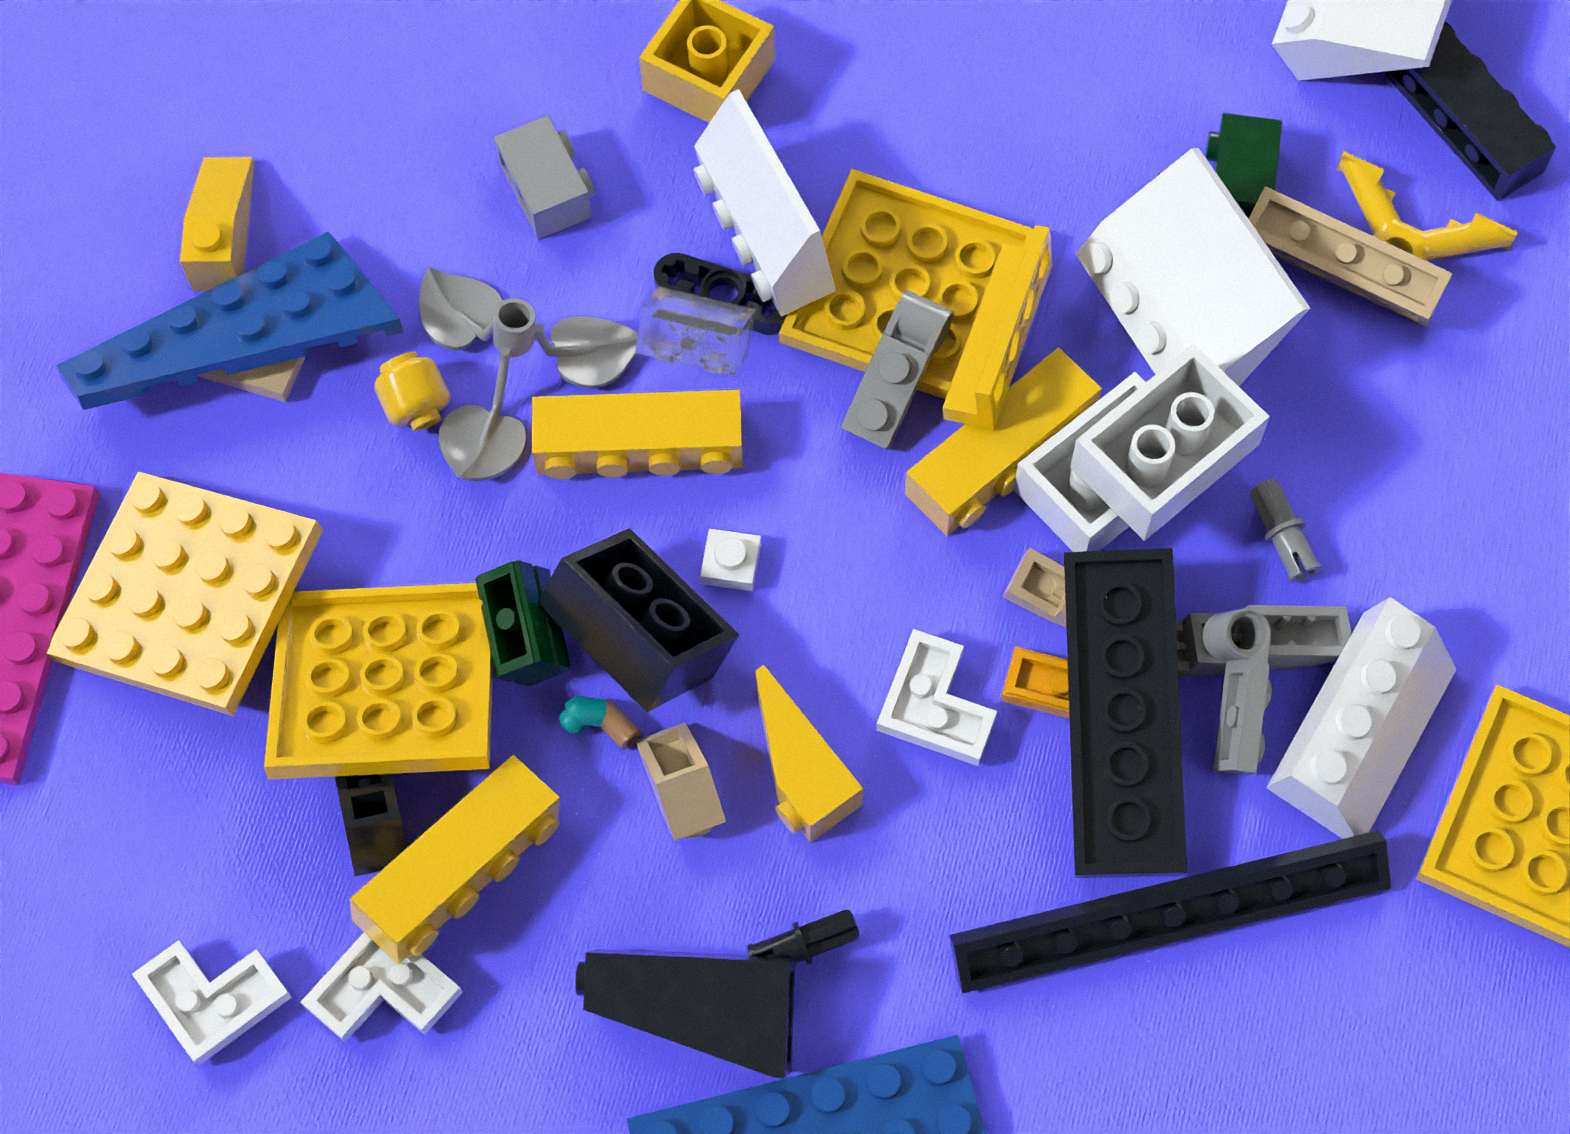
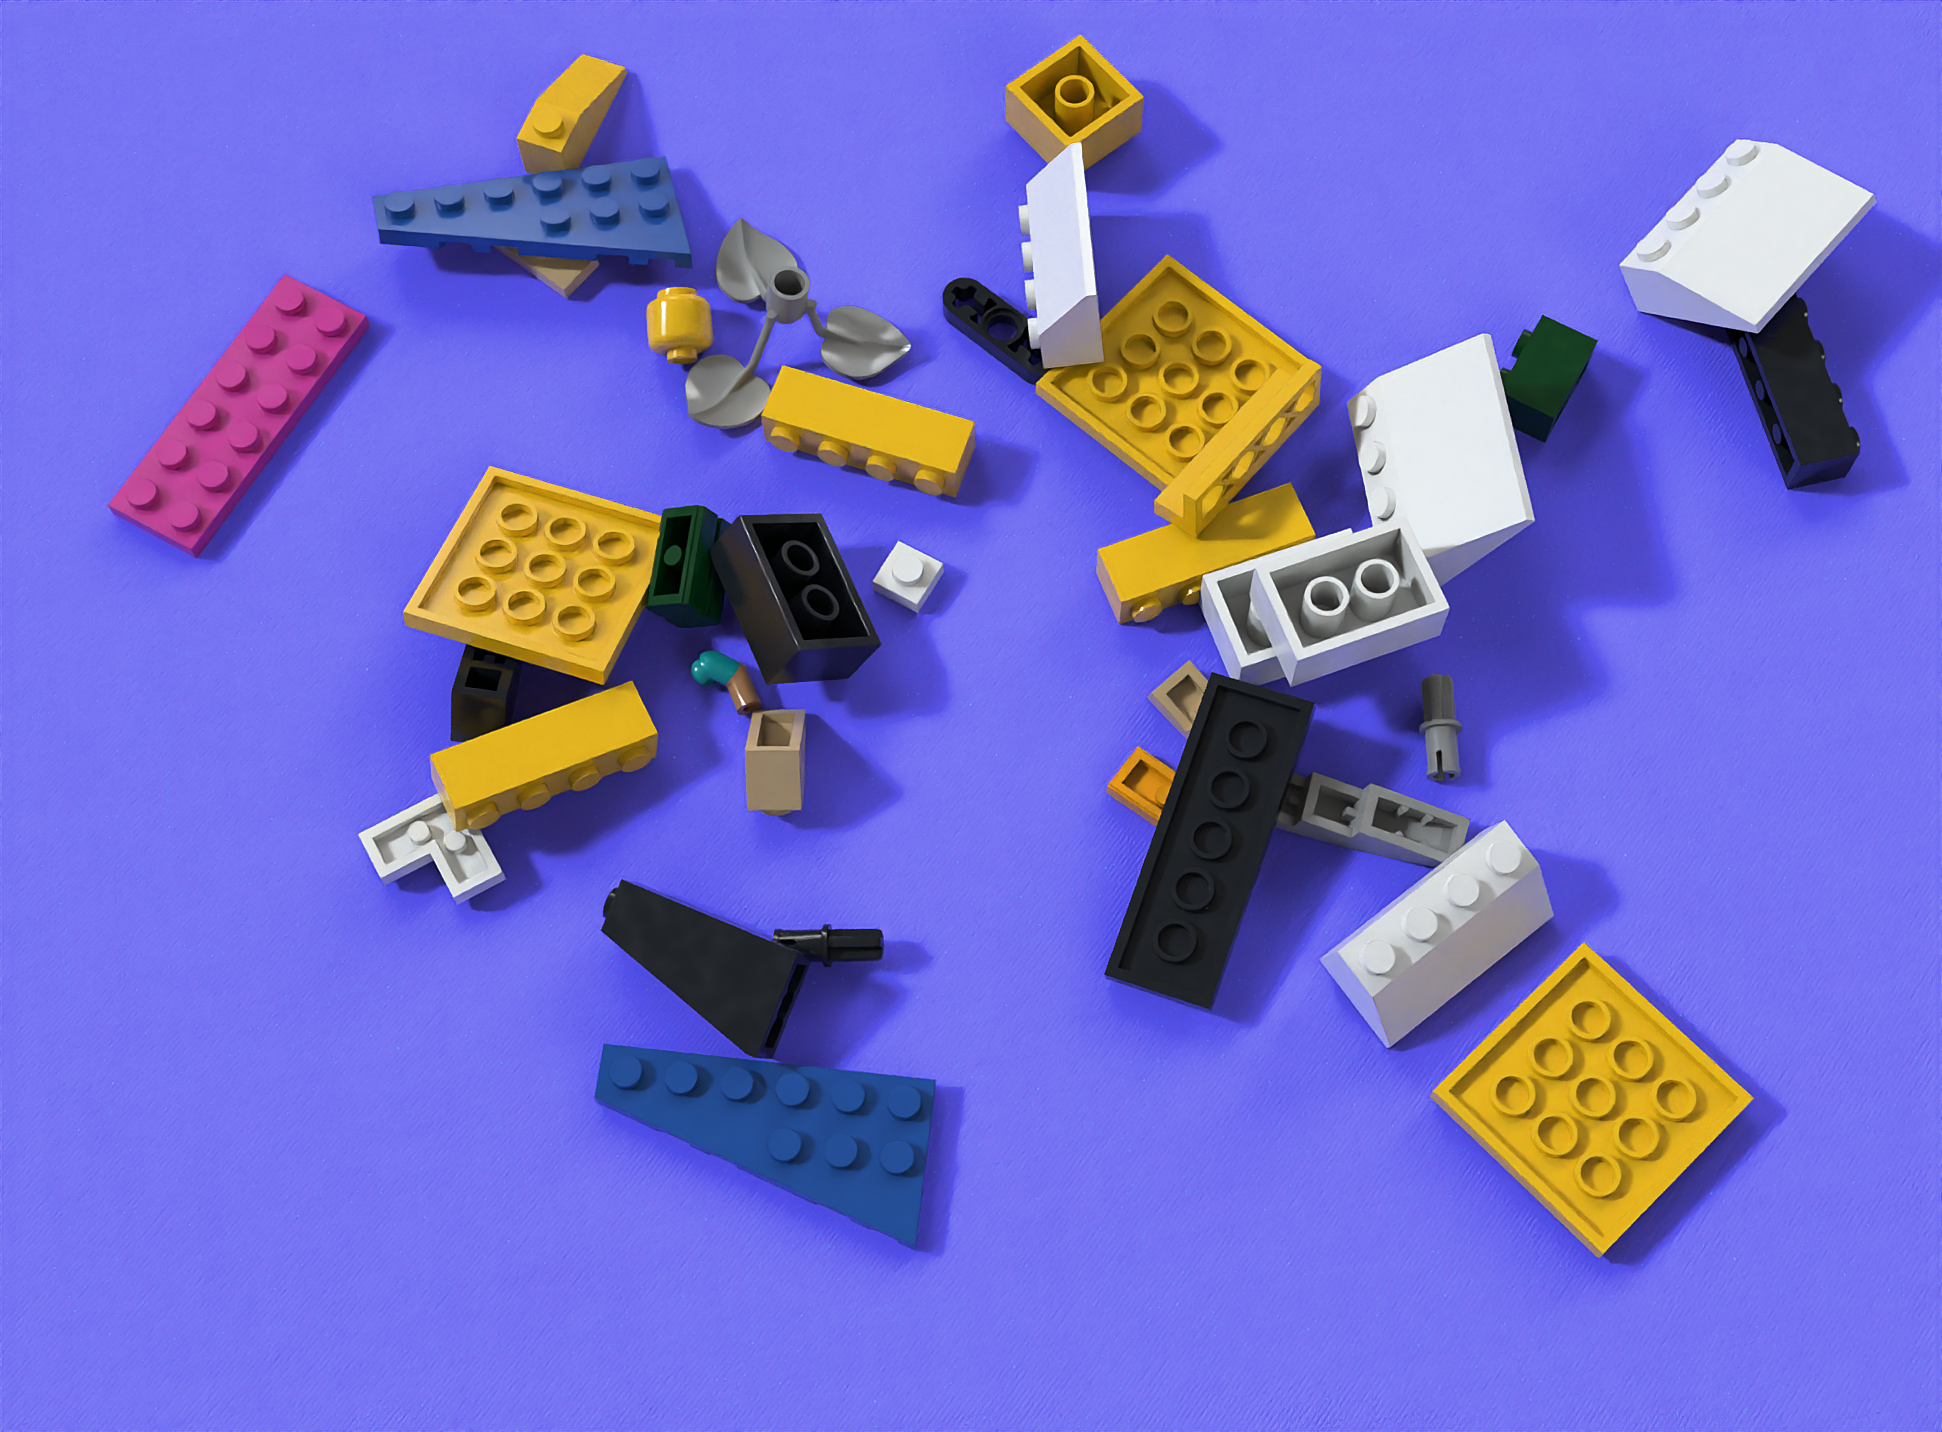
camera: 20 degrees right, 0 degrees up
(185, 592) = (406, 437): yellow plate -> none
(207, 1013) = (278, 816): white plate -> none
(544, 177) = (879, 169): light grey brick -> none
(695, 331) = (958, 355): clear brick -> none
(808, 776) = (892, 790): yellow slope -> none
(897, 368) = (1131, 450): light grey plate -> none
(922, 709) = (1027, 773): white plate -> none
(1170, 911) = (1182, 1040): black plate -> none
(1245, 688) = (1335, 861): light grey plate -> none
(1349, 257) = (1606, 489): tan fence -> none
(1428, 244) = (1685, 503): yellow piece -> none

